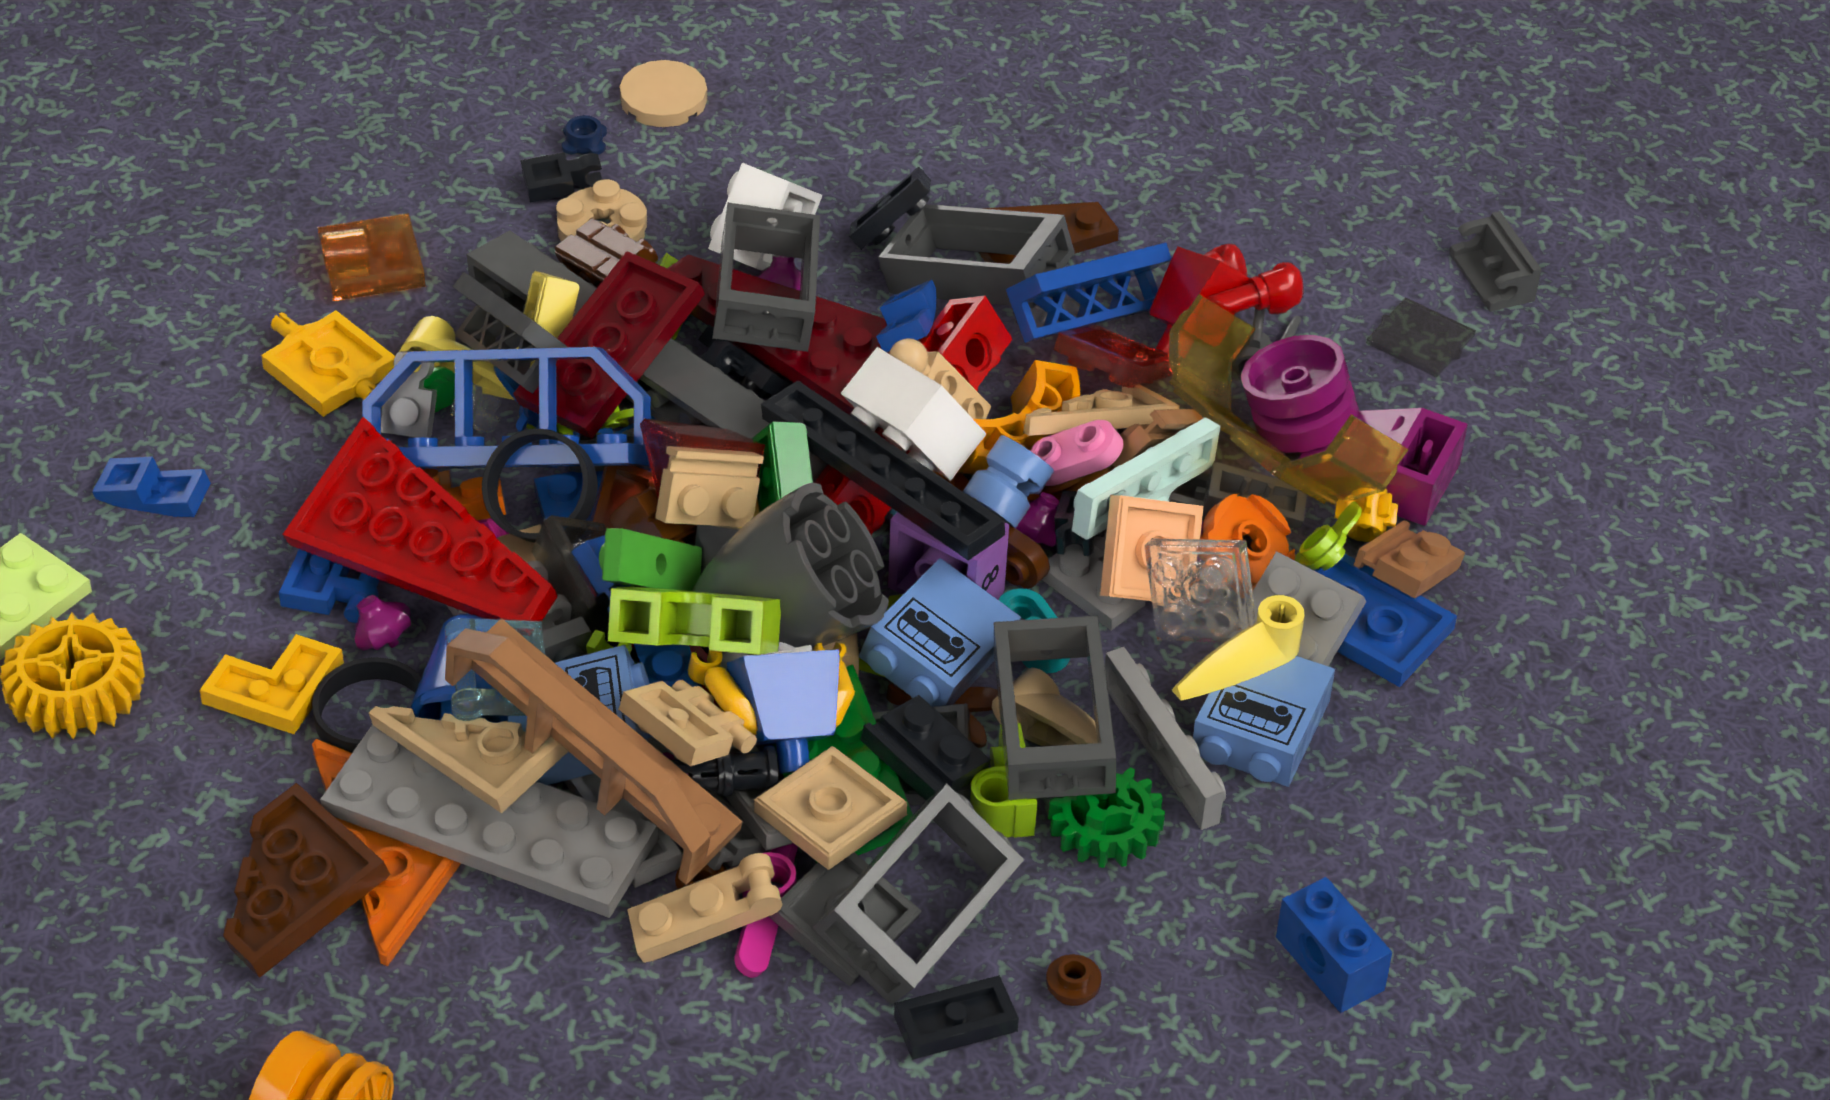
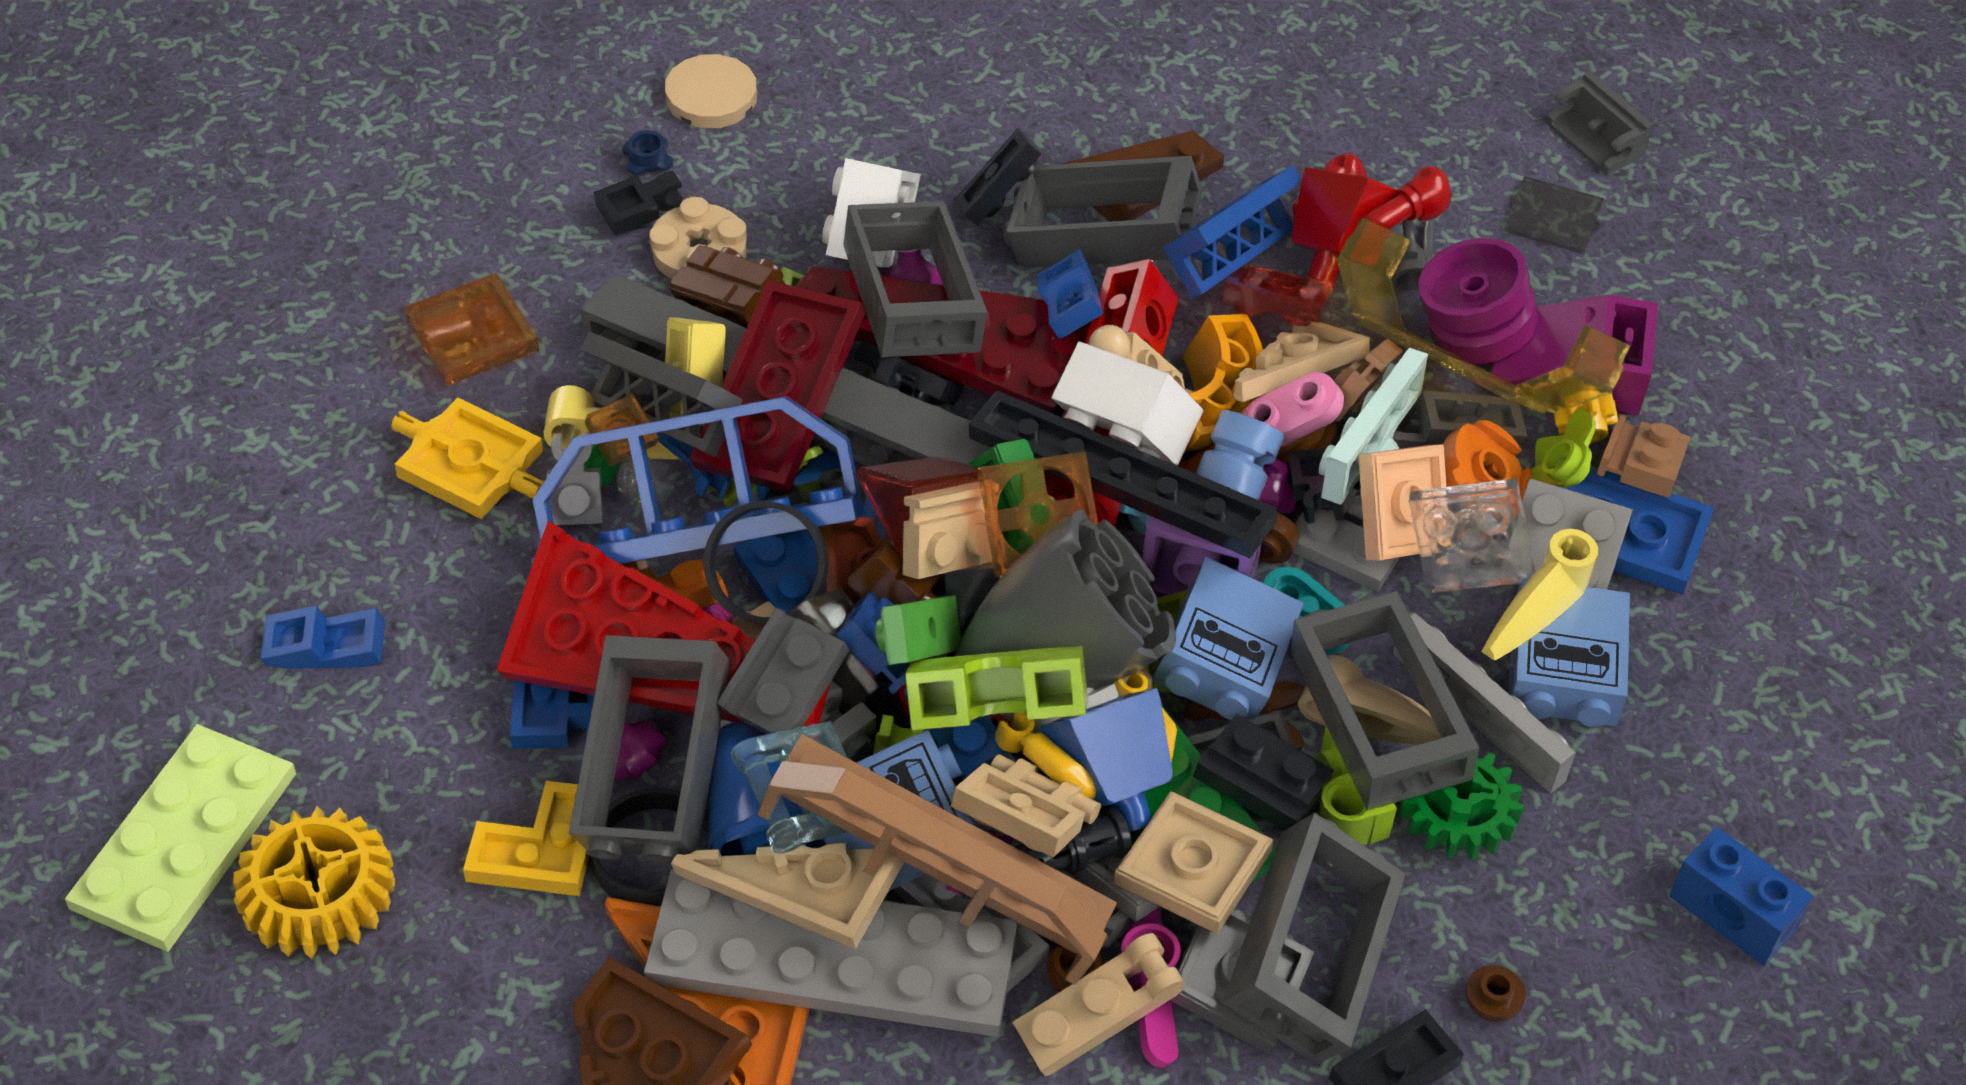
camera: 15 degrees left, 5 degrees up
(376, 546) = (653, 659): none -> dark grey window
(464, 341) = (617, 415): none -> clear orange plate
(515, 575) = (783, 675): none -> dark grey plate
(794, 468) = (992, 481): none -> clear orange piece

